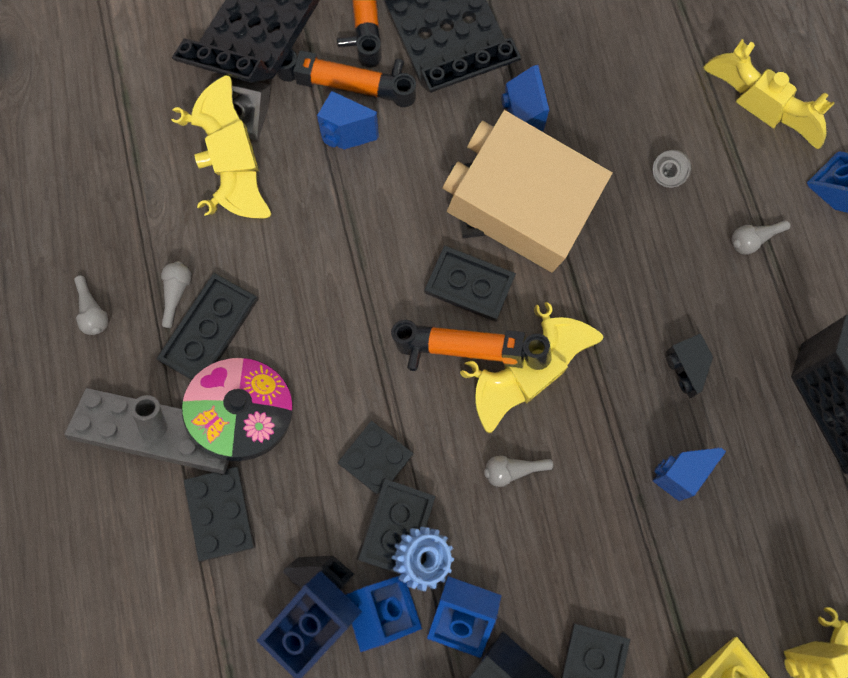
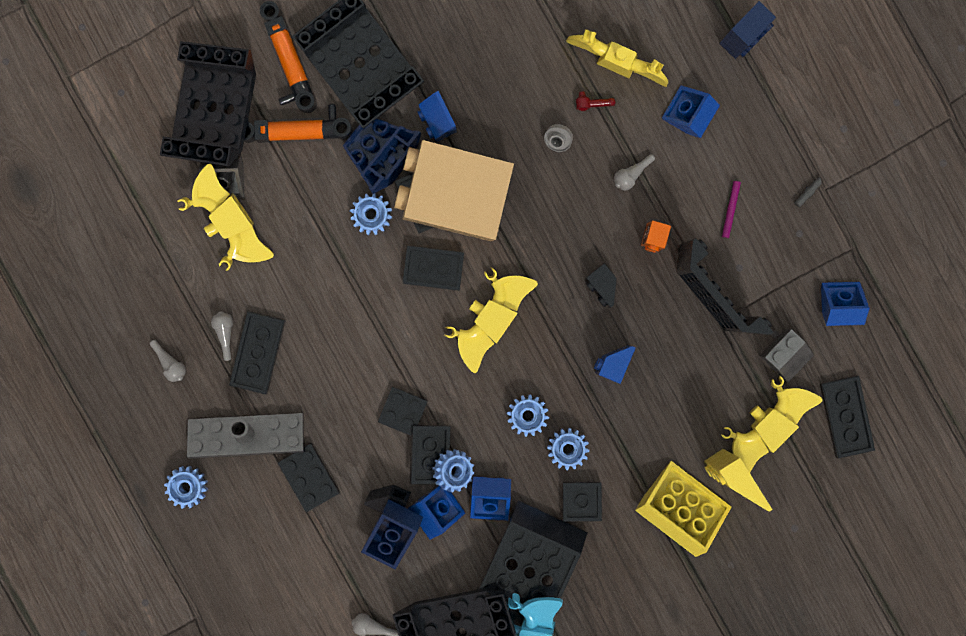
camera: 15 degrees left, 15 degrees up
(34, 472) = (176, 491): none -> light blue gear
(237, 409) = (298, 405): dish -> none
(346, 122) = (307, 172): blue slope -> none
(404, 184) = (363, 207): none -> light blue gear
(442, 126) = (380, 152): none -> dark blue wedge
(502, 470) = (491, 396): light grey piece -> none
(508, 348) = (471, 314): piece -> none
(557, 500) = (520, 407): none -> light blue gear
(608, 575) = (572, 458): none -> light blue gear
(712, 139) = (584, 103): none -> dark red piece
(777, 316) = (655, 236): none -> orange brick

